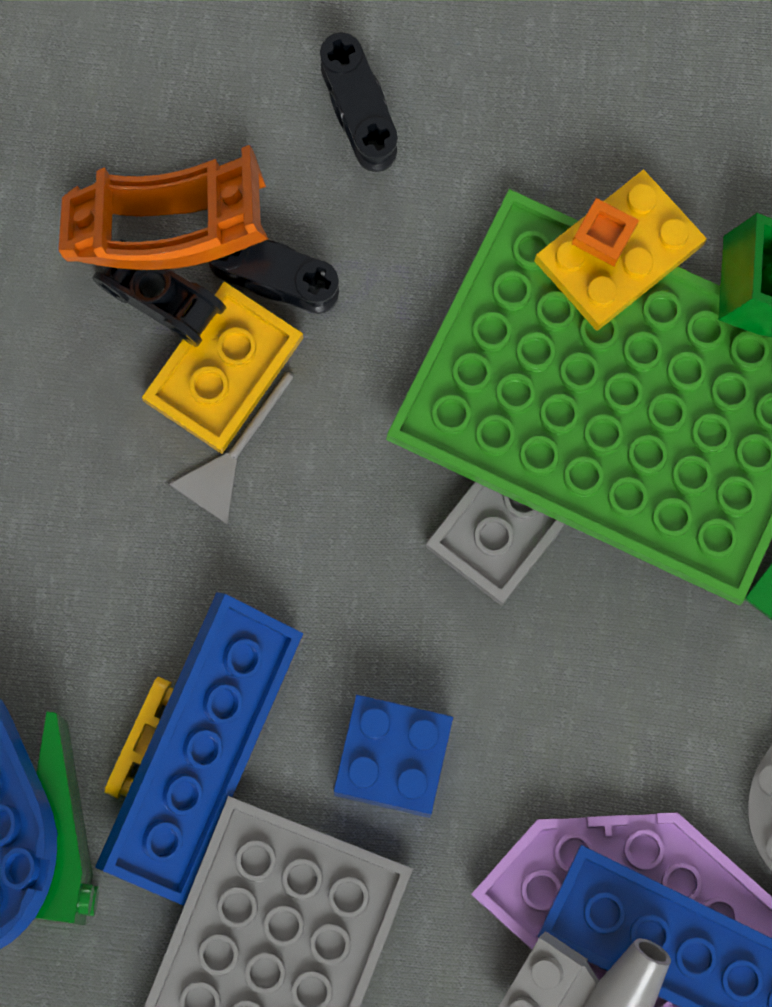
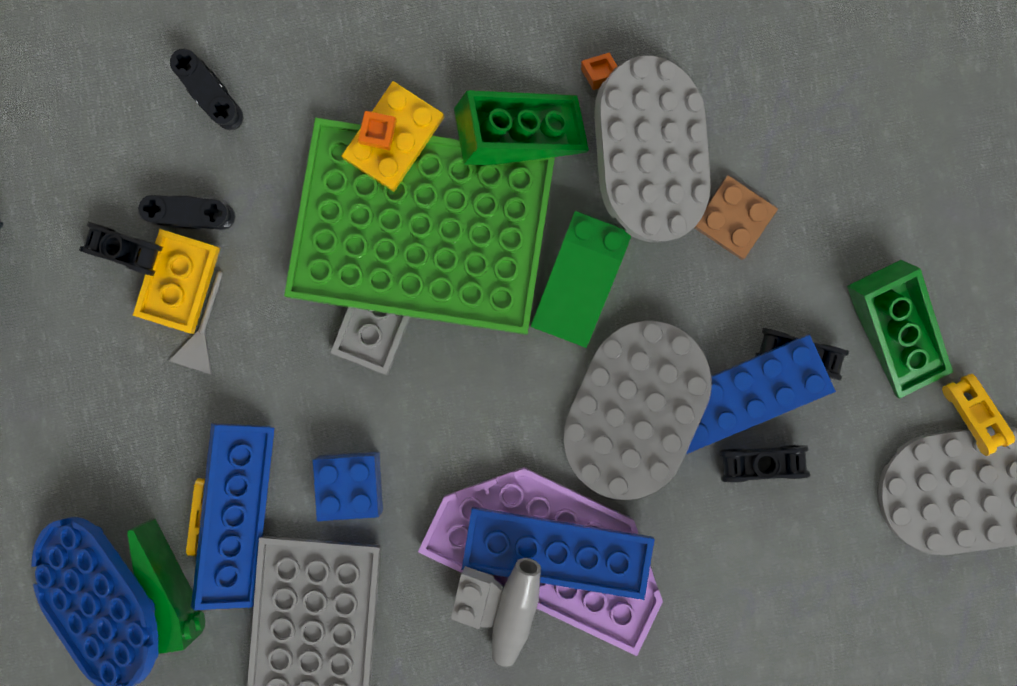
camera: 20 degrees left, 10 degrees up
(225, 190) = (134, 173): orange wedge -> none

